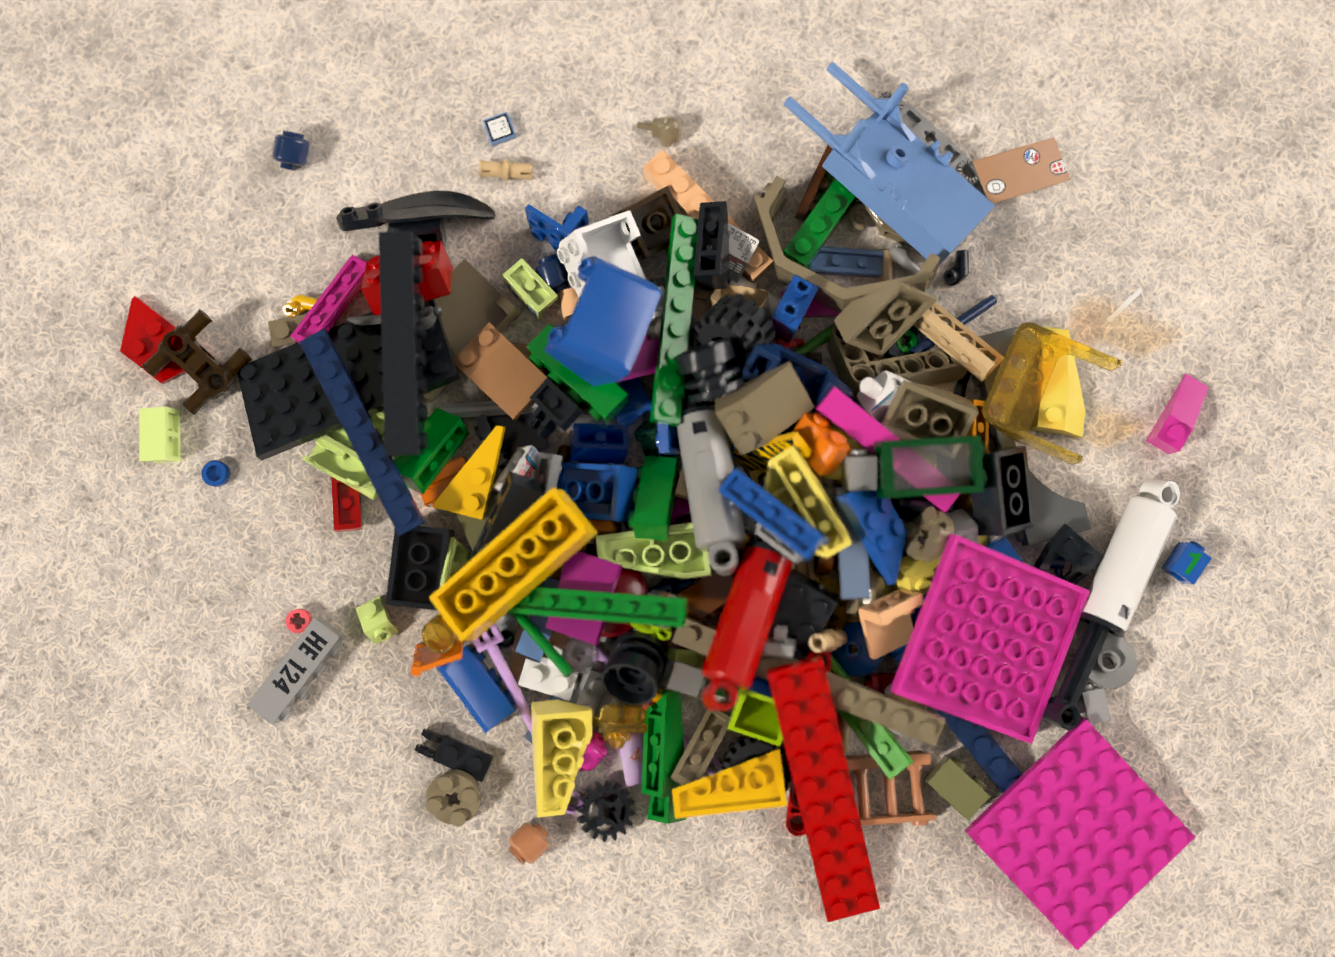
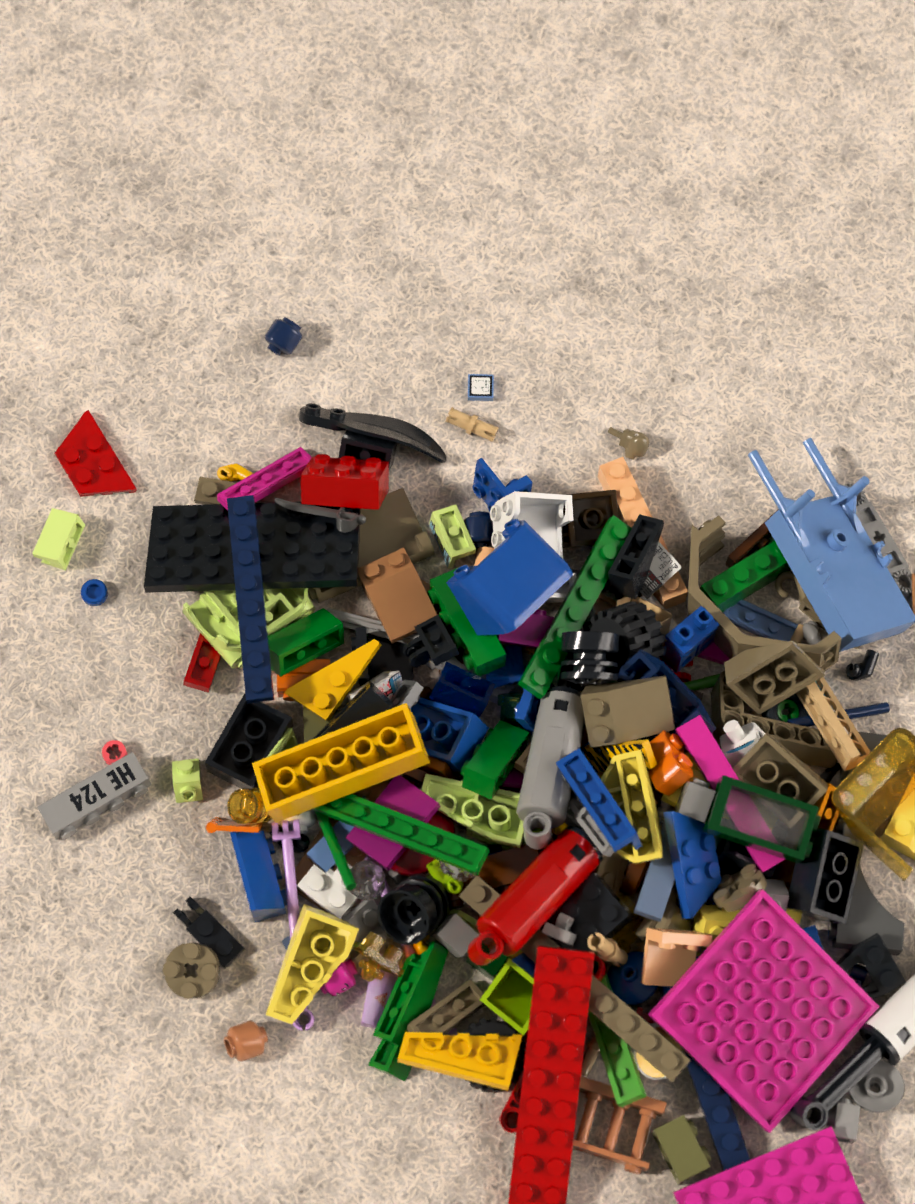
camera: 15 degrees right, 15 degrees down
(196, 361) = (122, 486): dark brown piece -> none
(402, 343) = (318, 535): black brick -> none
(597, 816) = (334, 1048): black gear -> none

